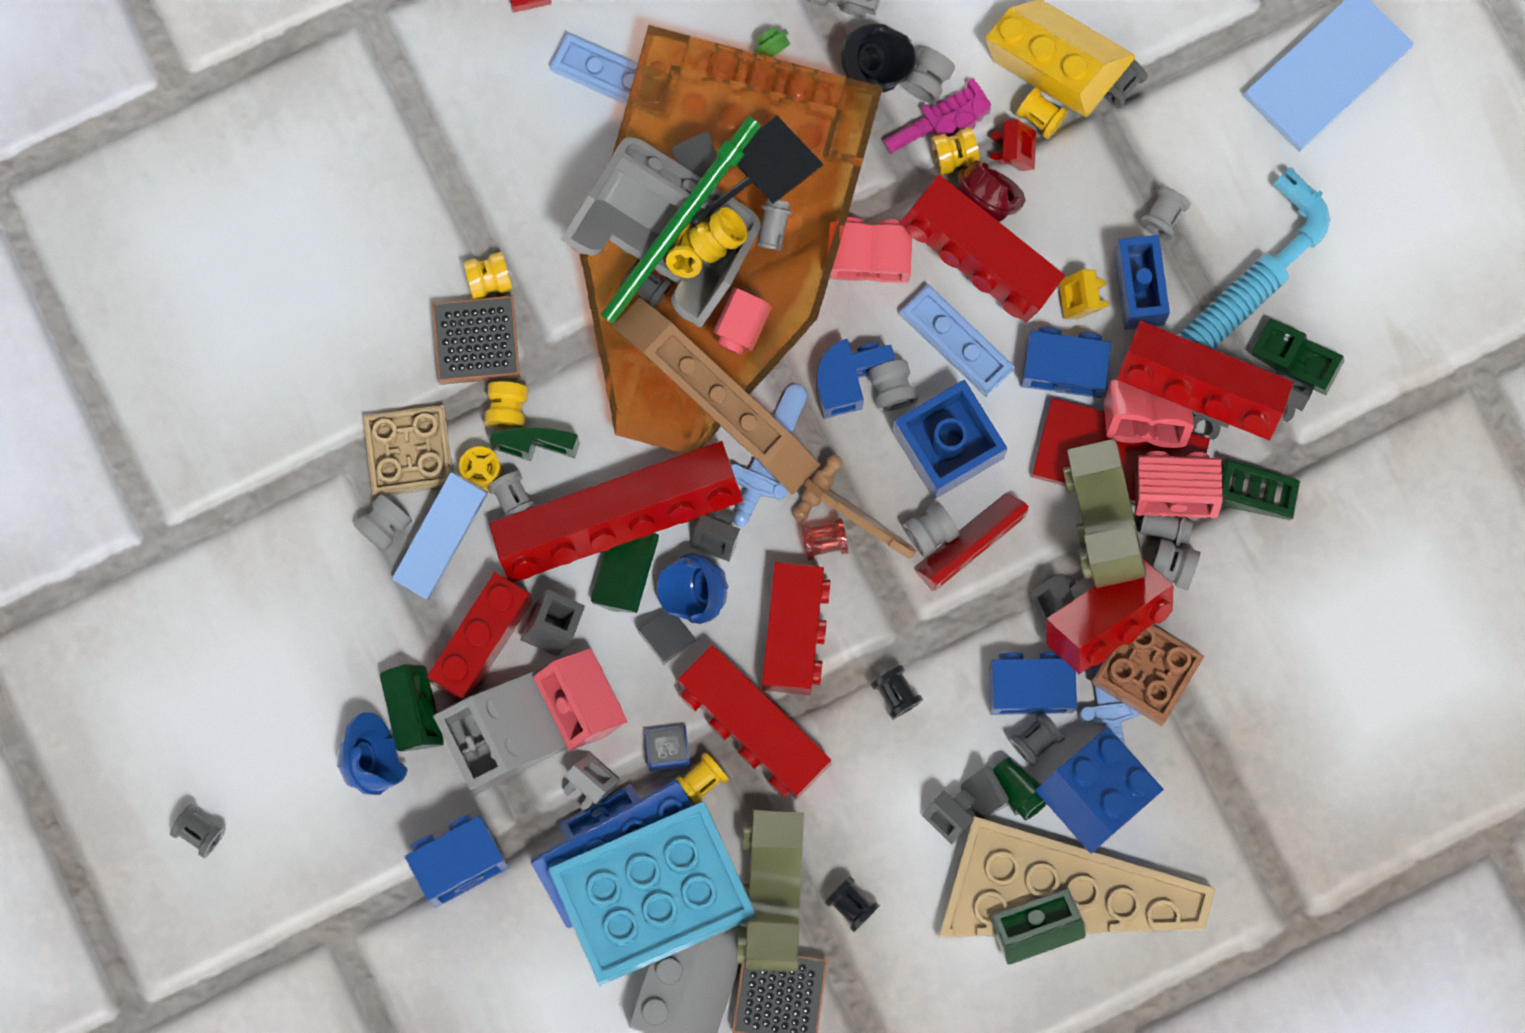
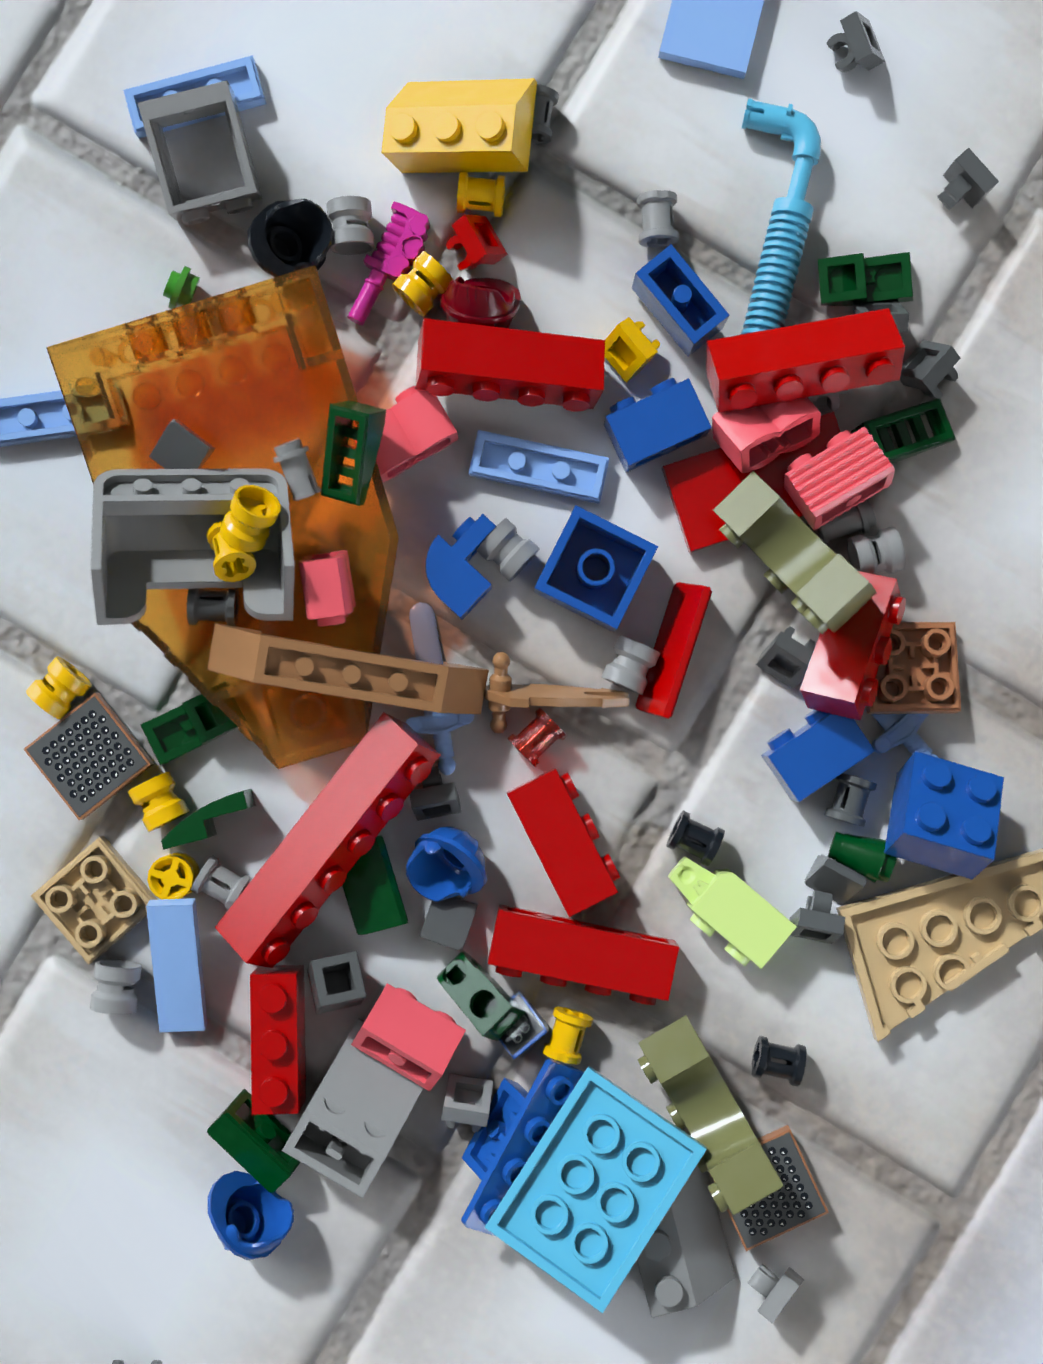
camera: 30 degrees left, 10 degrees up
(455, 860) = (393, 1268): blue brick -> none
(564, 367) = (186, 728): none -> dark green slope
(654, 706) = (480, 996): none -> leg
(730, 155) = (208, 432): green bar -> none
(773, 162) = (256, 409): black piece -> none
(840, 234) = (368, 438): none -> dark green slope
(890, 763) = (733, 910): none -> yellowish green hinge
(1038, 926) = (963, 975): dark green slope -> none
(1304, 449) = (928, 366): none -> dark grey tile
(1404, 178) = (861, 44): none -> dark grey tile
(1420, 329) = (967, 180): none -> dark grey tile

